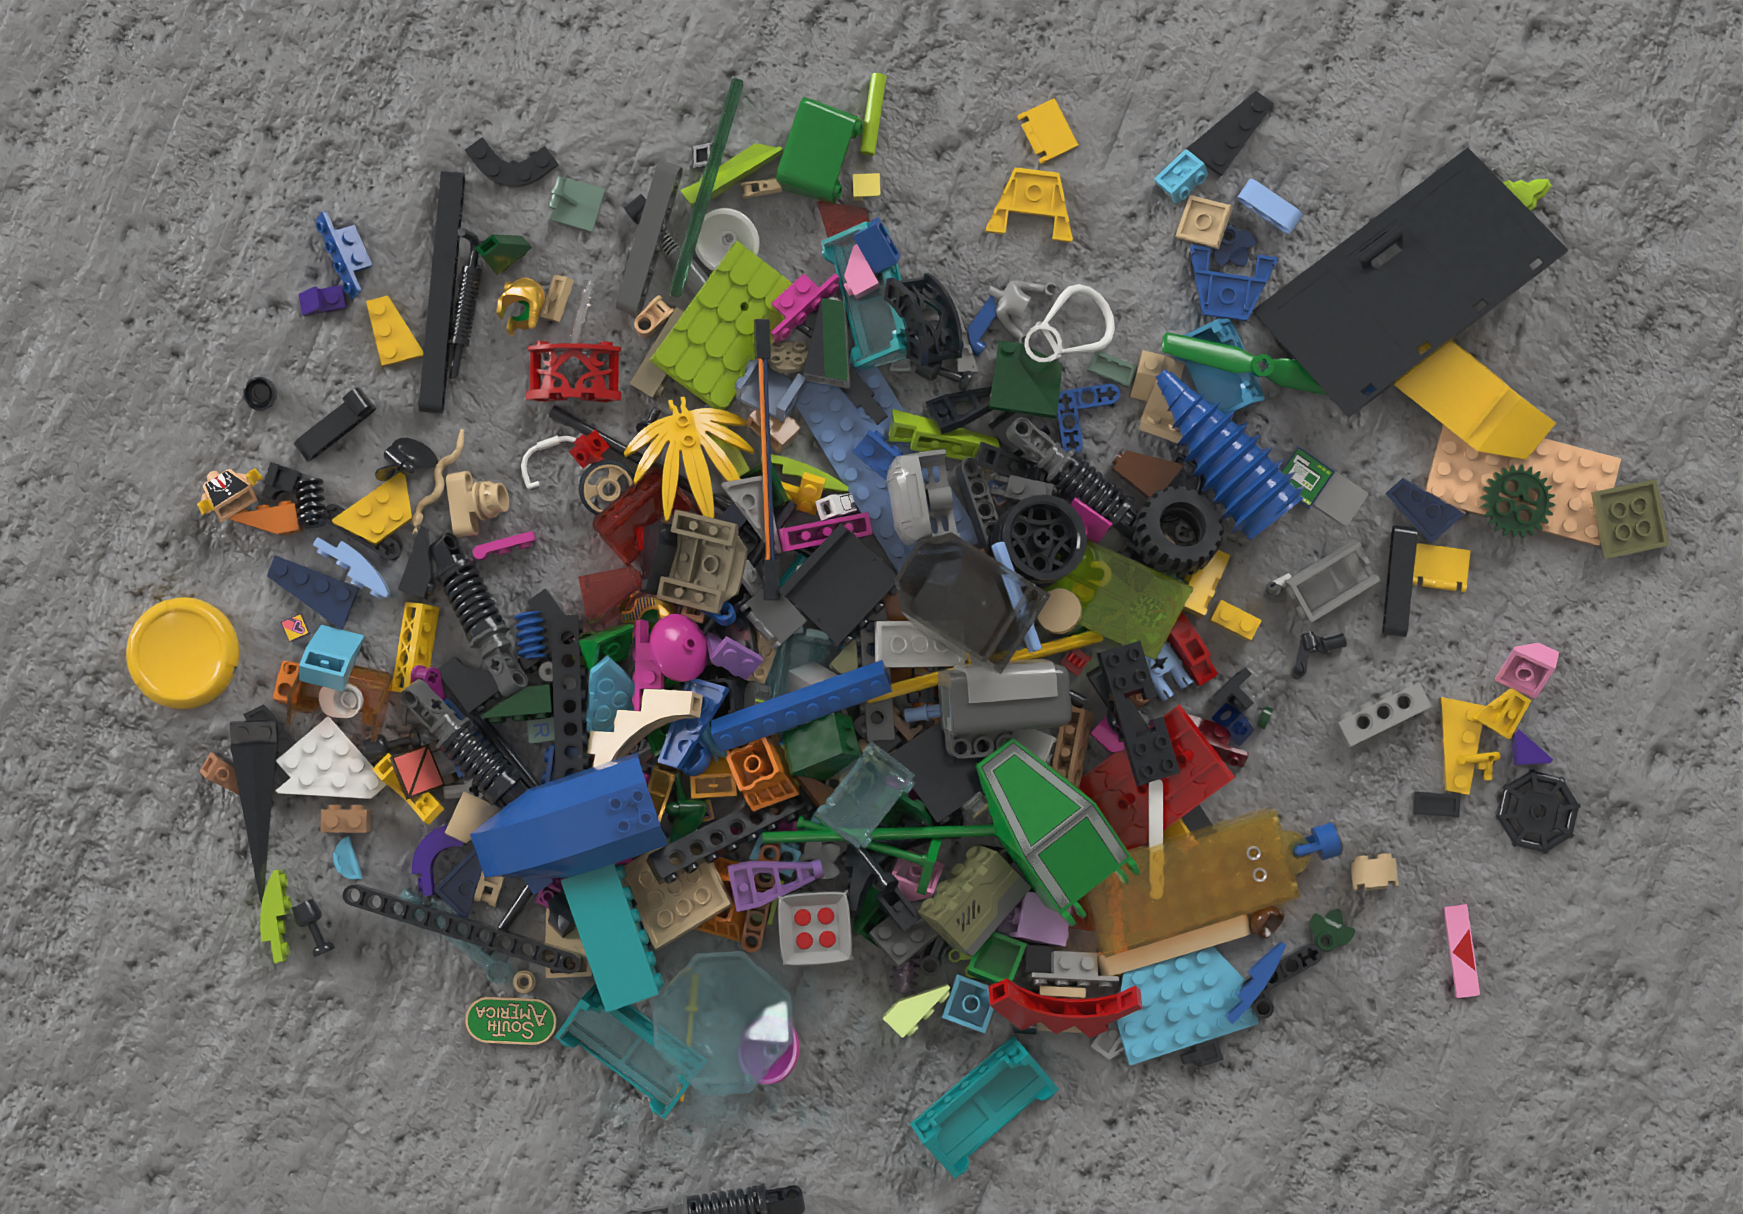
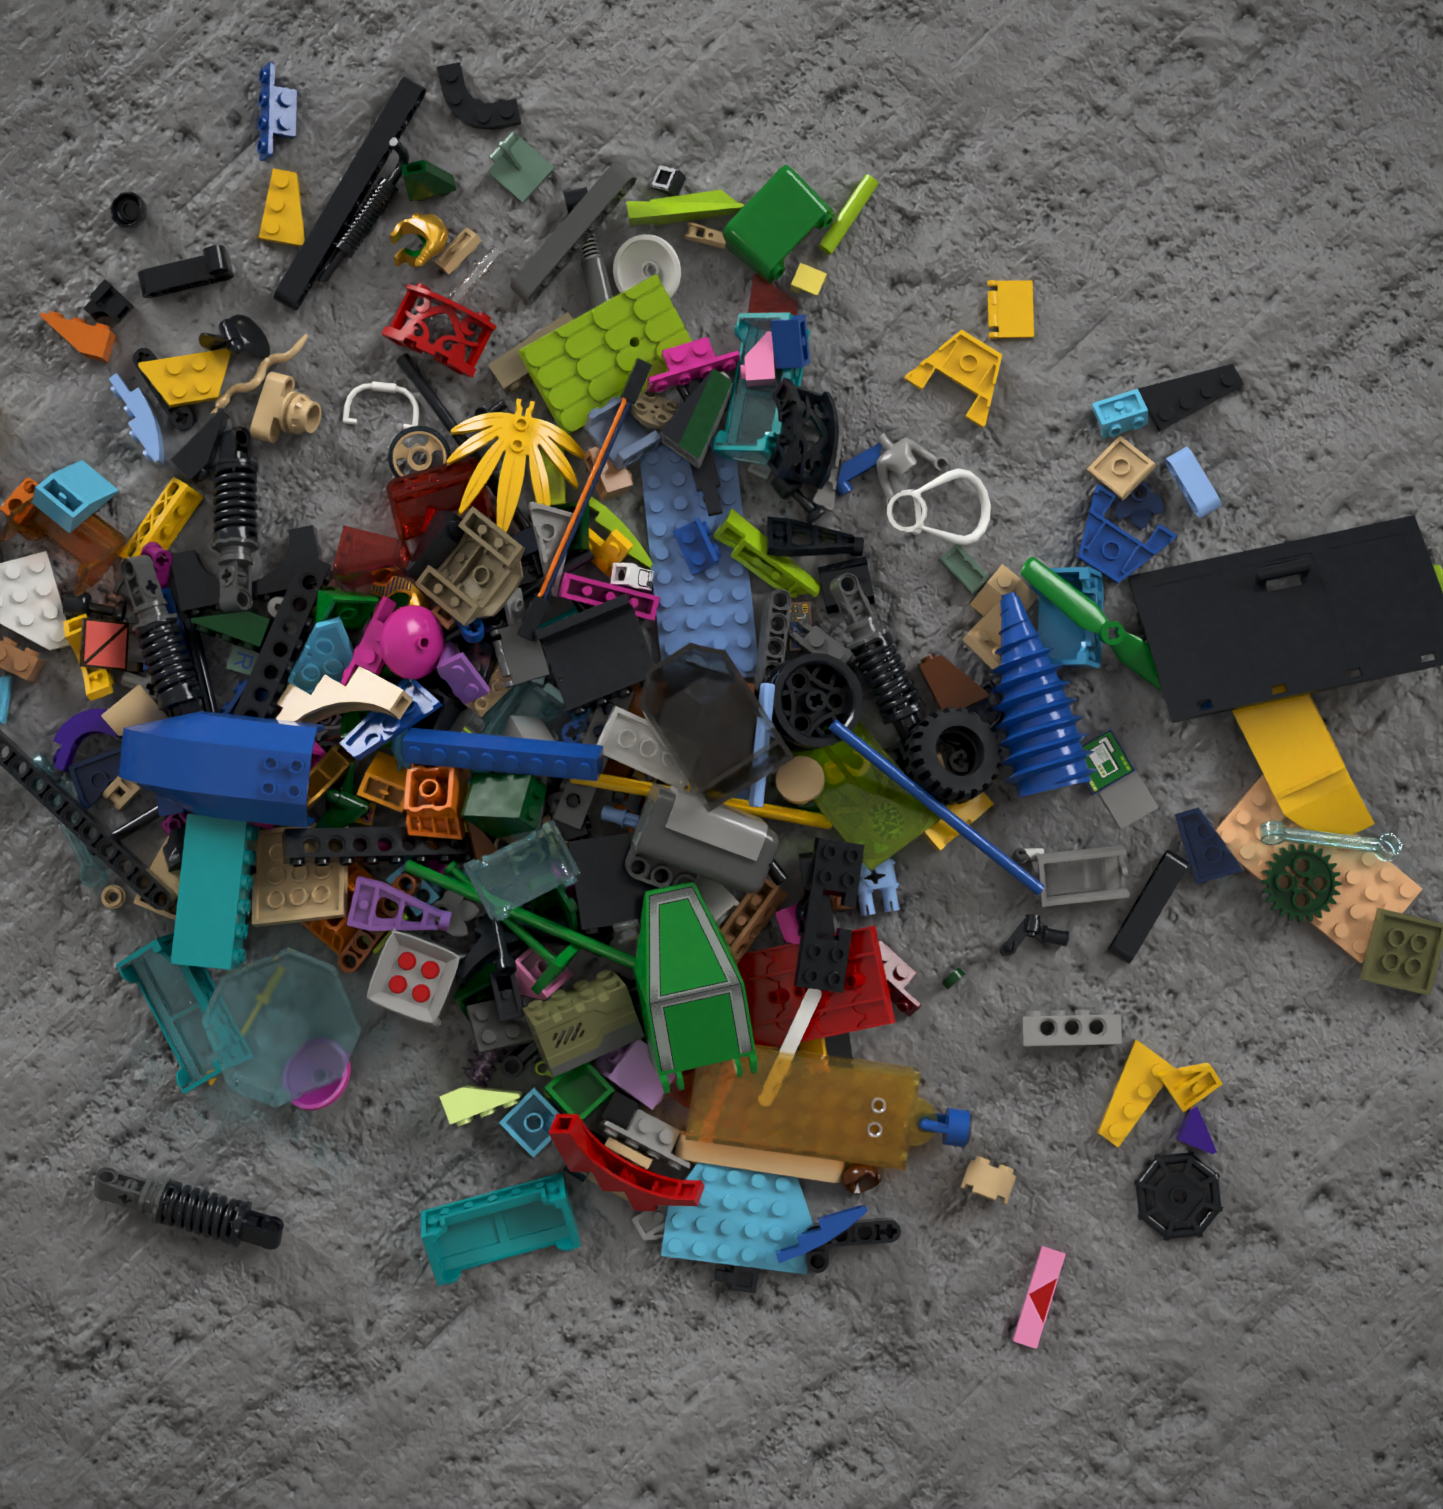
camera: 20 degrees right, 0 degrees up
(228, 493) = (50, 291): torso -> none
(295, 627) = (56, 451): tile -> none
(308, 503) = (124, 335): black piece -> none
(320, 592) = (95, 427): dark blue wing -> none
(322, 300) = (227, 147): dark purple slope -> none
(340, 703) = (64, 545): white cap -> none
(504, 545) = (293, 465): dark pink plate -> none
(511, 1020) = (83, 928): tile -> none
(530, 635) = (274, 562): blue piece -> none
(589, 449) = (419, 410): red brick -> none
(654, 316) = (543, 310): light nougat piece -> none
(698, 760) = (379, 760): blue hair -> none
(706, 188) = (651, 208): clear green axle -> none
(846, 659) = (570, 729): olive slope -> none
(903, 727) = (595, 821): medium nougat plate -> none
(909, 496) = (702, 601): light grey piece -> none
(1008, 464) = (817, 613): black slope -> none
(1024, 383) = (871, 542): dark green slope -> none
(1075, 661) = (794, 836): red tile -> none
(1078, 404) = (914, 588): blue beam -> none
(1094, 523) = (874, 711): dark pink piece -> none
(1185, 580) = (936, 807): none -> blue piece
(1192, 650) = (912, 879): red slope -> none
(1234, 620) = (968, 869): yellow brick -> none
(1236, 724) = (921, 972): clear blue bracket -> none
(1238, 698) = (935, 947): black bracket -> none
(1331, 927) = (923, 1215): dark green plate -> none
(1436, 804) = (1082, 1141): black tile -> none
(1441, 567) = (1195, 912): yellow piece -> none
(1477, 469) = (1275, 833): none -> clear light blue piece
(1483, 761) = (1147, 1121): yellow hose -> none
(1528, 668) = (1234, 1051): bright pink slope -> none

